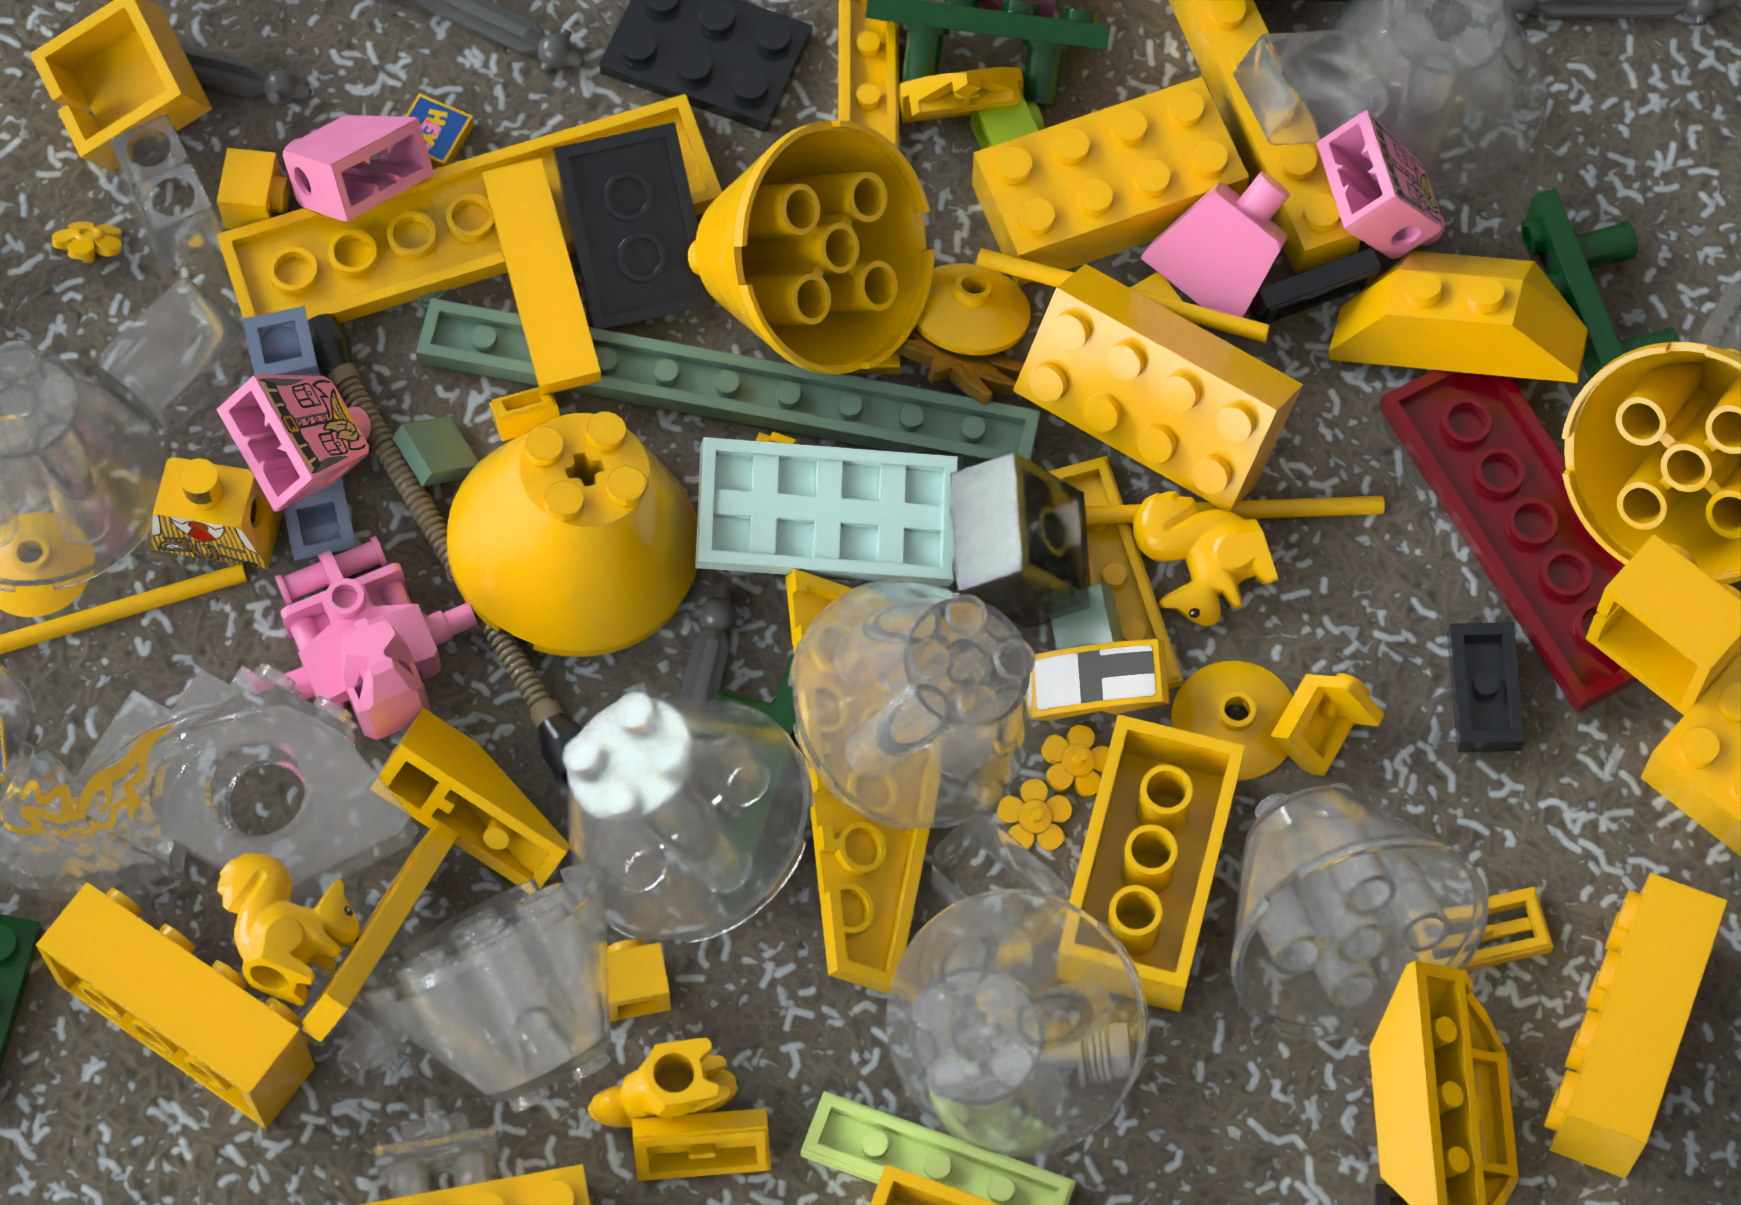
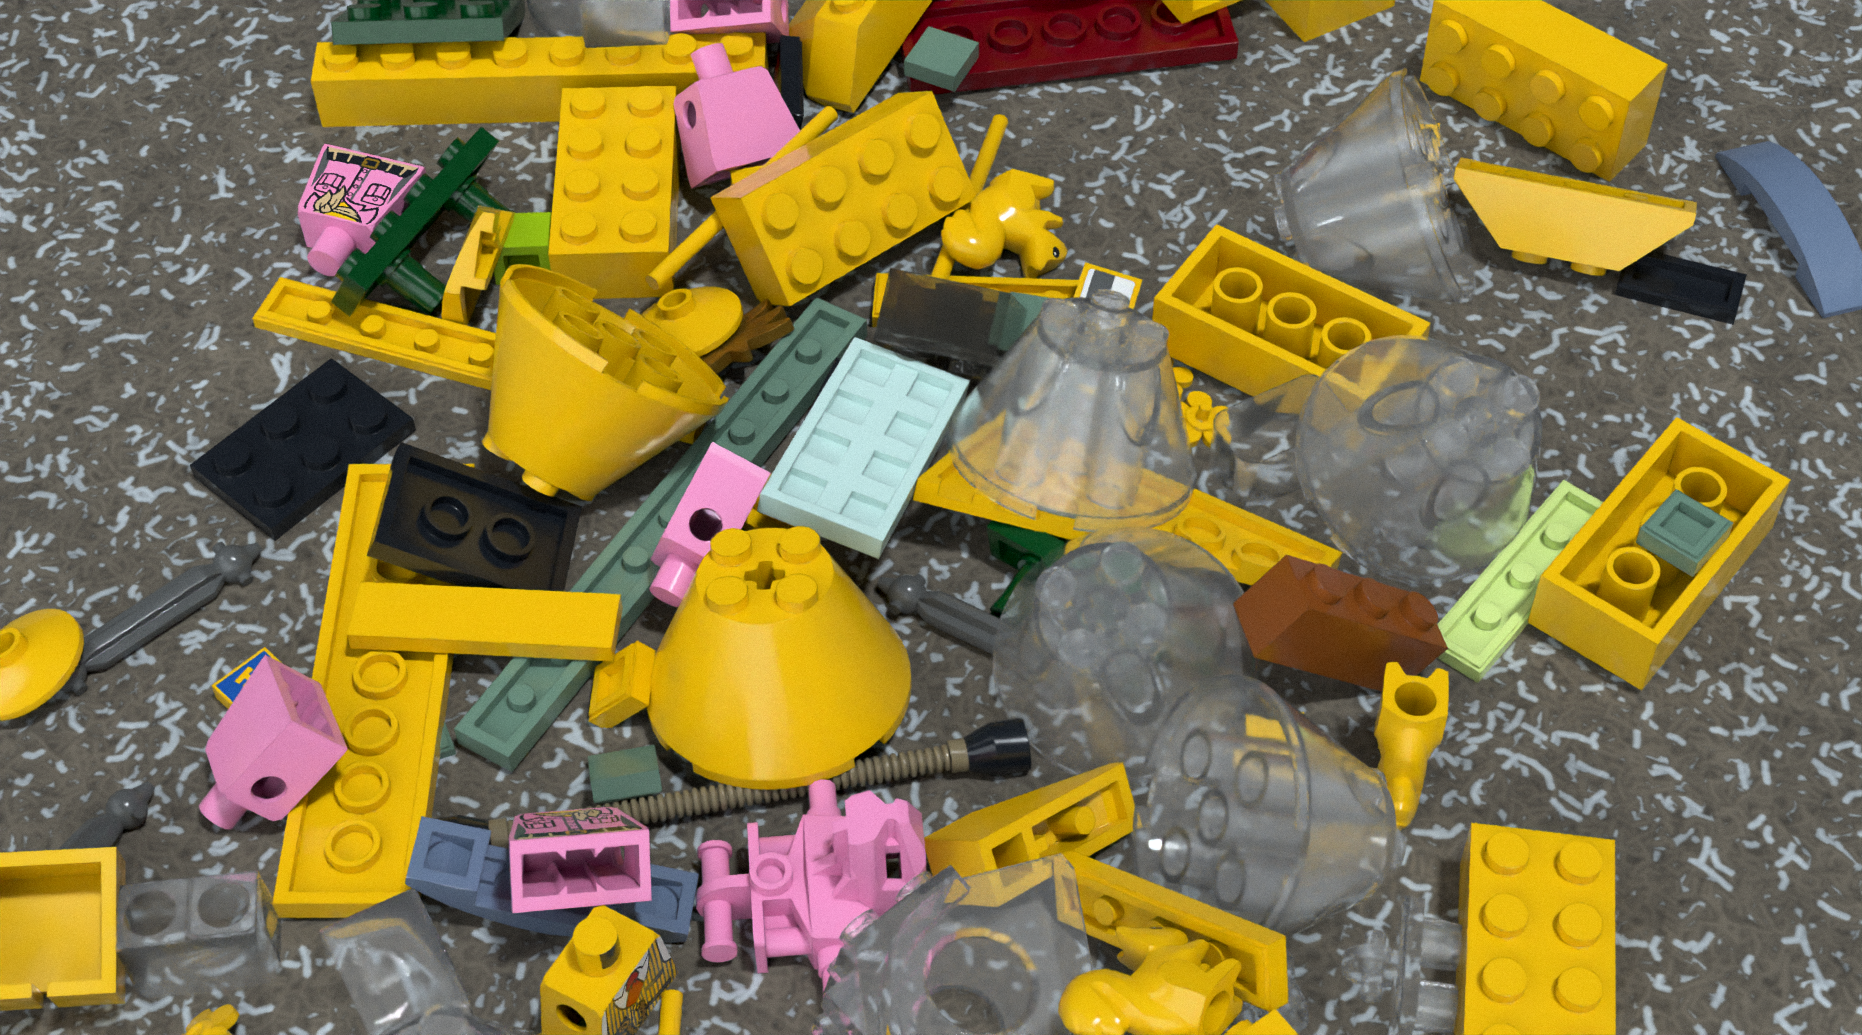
camera: 70 degrees left, 15 degrees down
(251, 188) = (236, 846): yellow plate -> none
(701, 1144) = (1457, 760): yellow tile -> none
(702, 404) = (714, 501): none -> bright pink torso
(760, 994) = (1337, 623): none -> dark orange brick
(1210, 690) = (1138, 251): yellow dish -> none
(1322, 718) = (1177, 189): yellow bracket -> none
(1414, 413) = (941, 58): none -> sand green tile
(1485, 687) = (1196, 98): black plate -> none

